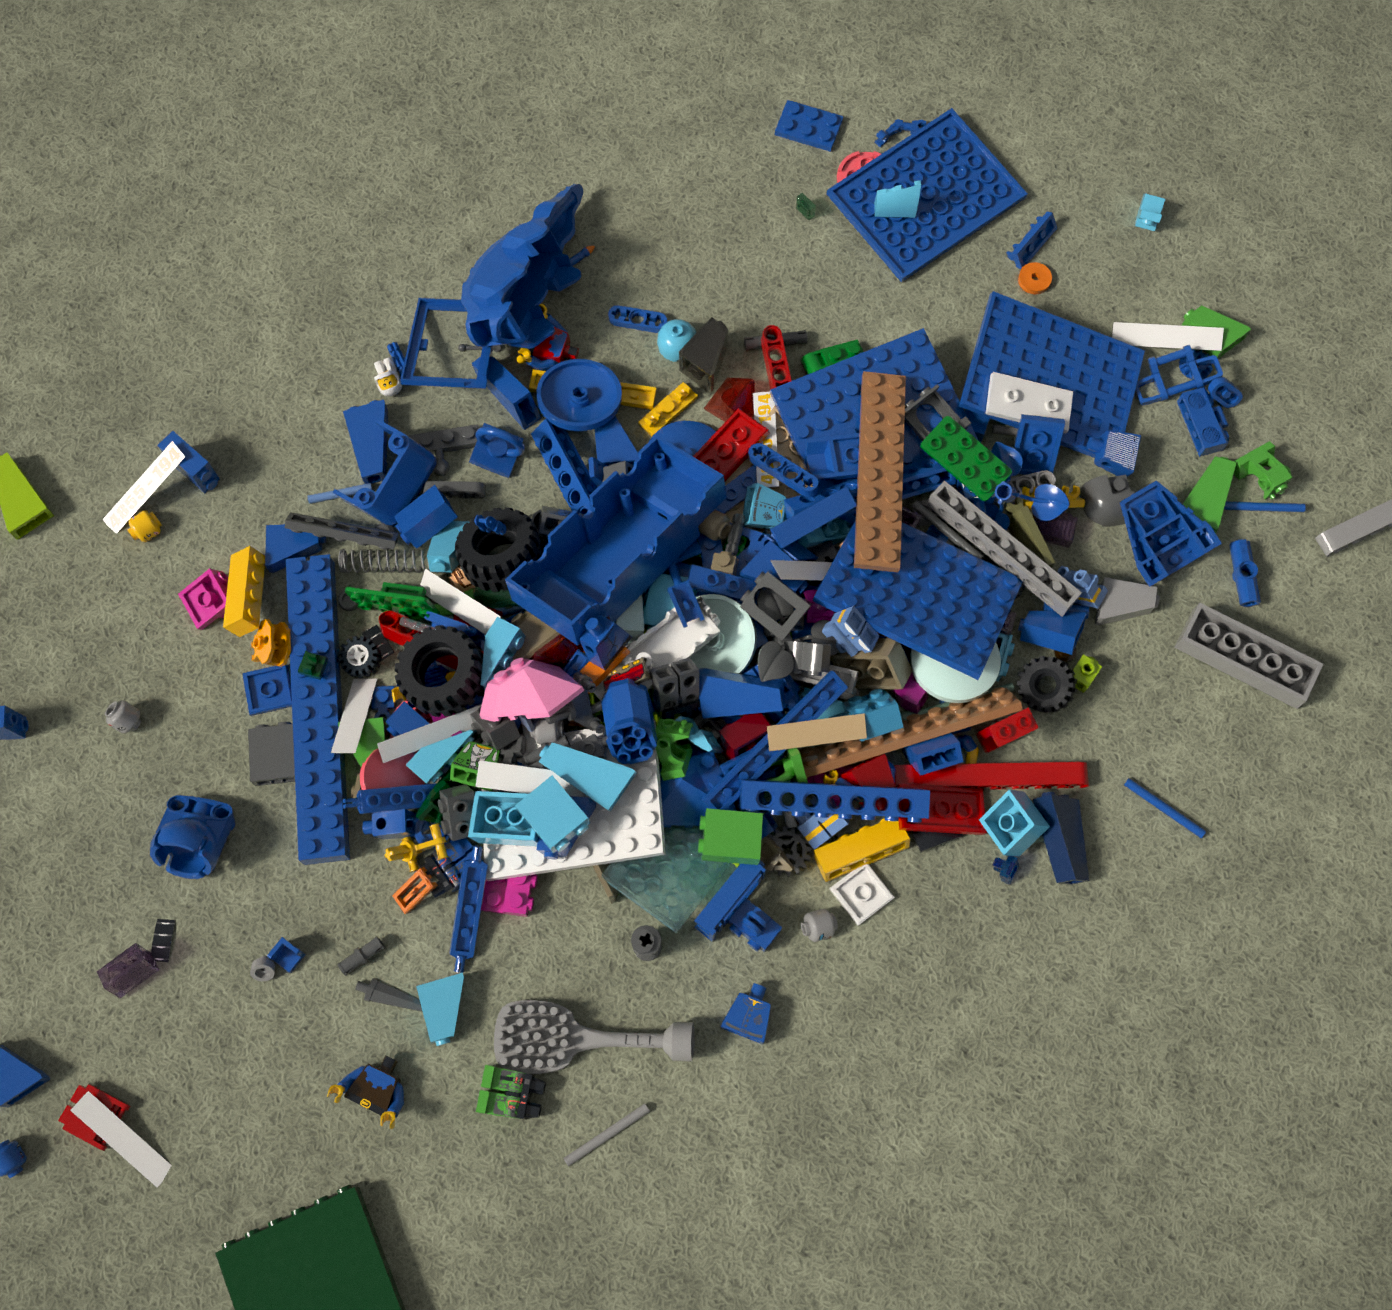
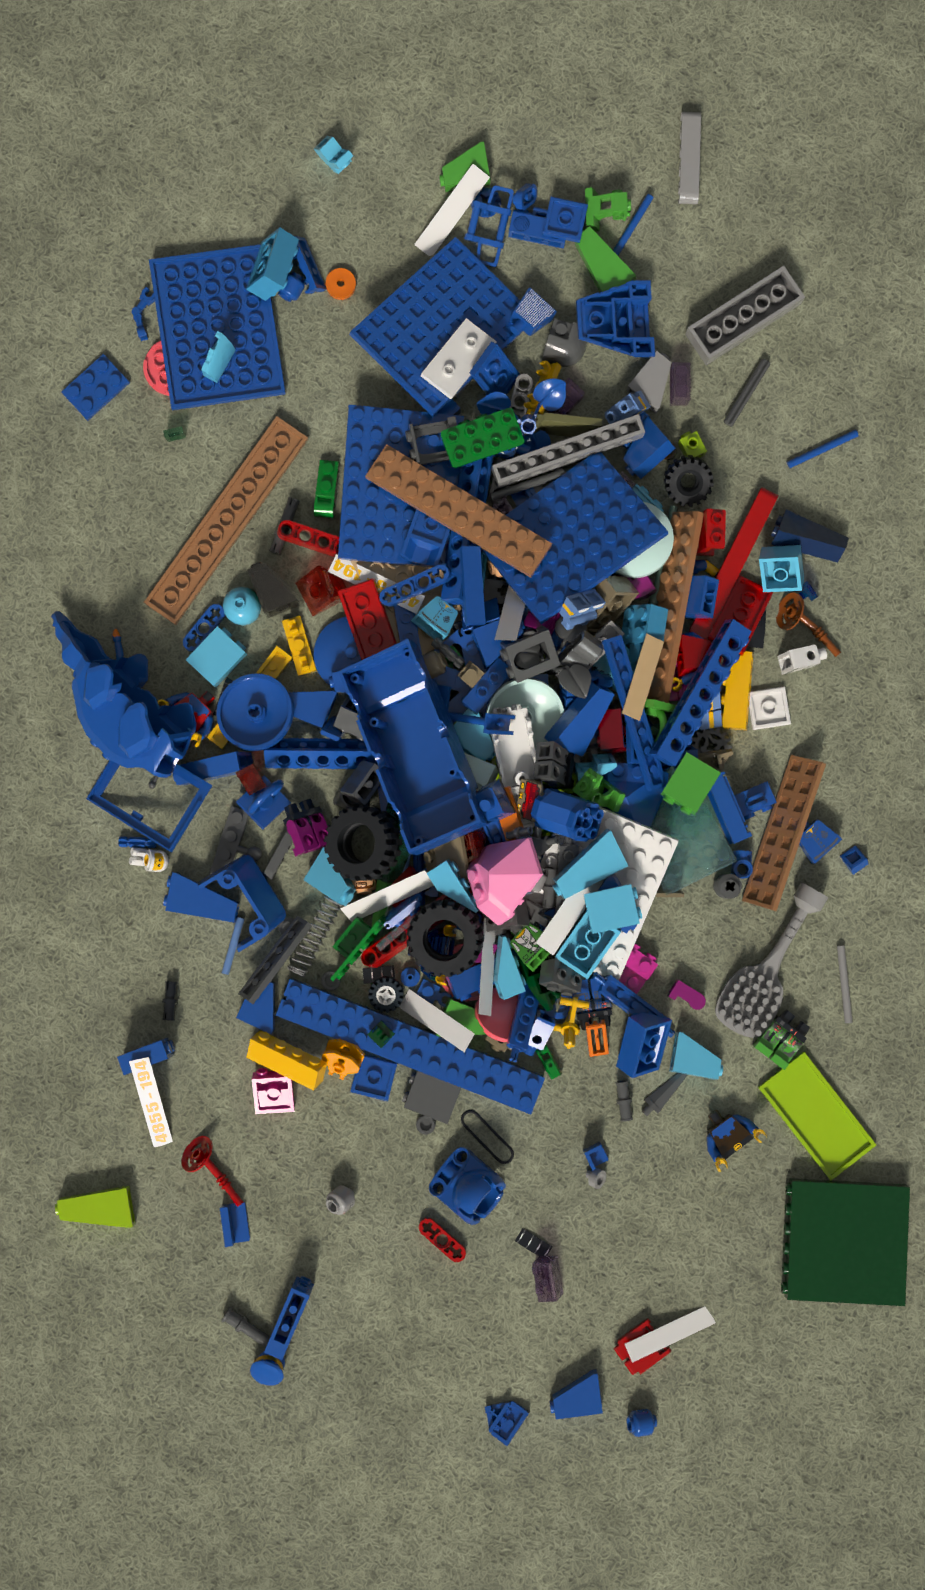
camera: 60 degrees left, 15 degrees up
(55, 628) = (234, 1224): none -> blue panel
(110, 563) = (203, 1159): none -> red dish
(121, 833) = (456, 1245): none -> red beam
(144, 526) = (180, 1116): yellow head -> none
(240, 764) = (425, 1125): none -> dark grey tile
(249, 830) = (493, 1131): none -> black piece
(256, 462) = (170, 1001): none -> black pin
(364, 858) = (549, 1064): none -> green bar
(387, 673) = (410, 971): none -> blue tile
(424, 517) = (297, 887): blue brick -> none
(430, 941) = (643, 1044): none -> blue slope
(442, 1182) = (817, 1116): none -> lime tile
(489, 523) = (349, 839): blue piece -> none
(490, 493) = (306, 827): none -> magenta hips
(510, 961) = (691, 996): none -> magenta leg
(514, 421) = (251, 778): none -> clear red slope
(616, 341) = (217, 656): none -> medium azure brick
(685, 944) = (744, 858): none -> blue piece
(736, 975) = (783, 832): none -> medium nougat plate
(749, 1073) = (854, 859): none -> blue slope
(751, 288) = (226, 520): none -> medium nougat plate
(819, 925) = (777, 752): light grey head -> none
(925, 892) = (801, 658): none -> white torso
(976, 864) = (796, 614): none -> dark orange dish
(1003, 235) = (293, 288): none -> blue head
(1013, 205) = (273, 264): none -> dark azure brick
(1139, 628) = (680, 383): none -> clear purple brick
(1173, 701) = (747, 392): none -> dark grey axle
(1227, 436) = (565, 219): none -> blue tile
(1246, 585) = (666, 271): blue piece -> none

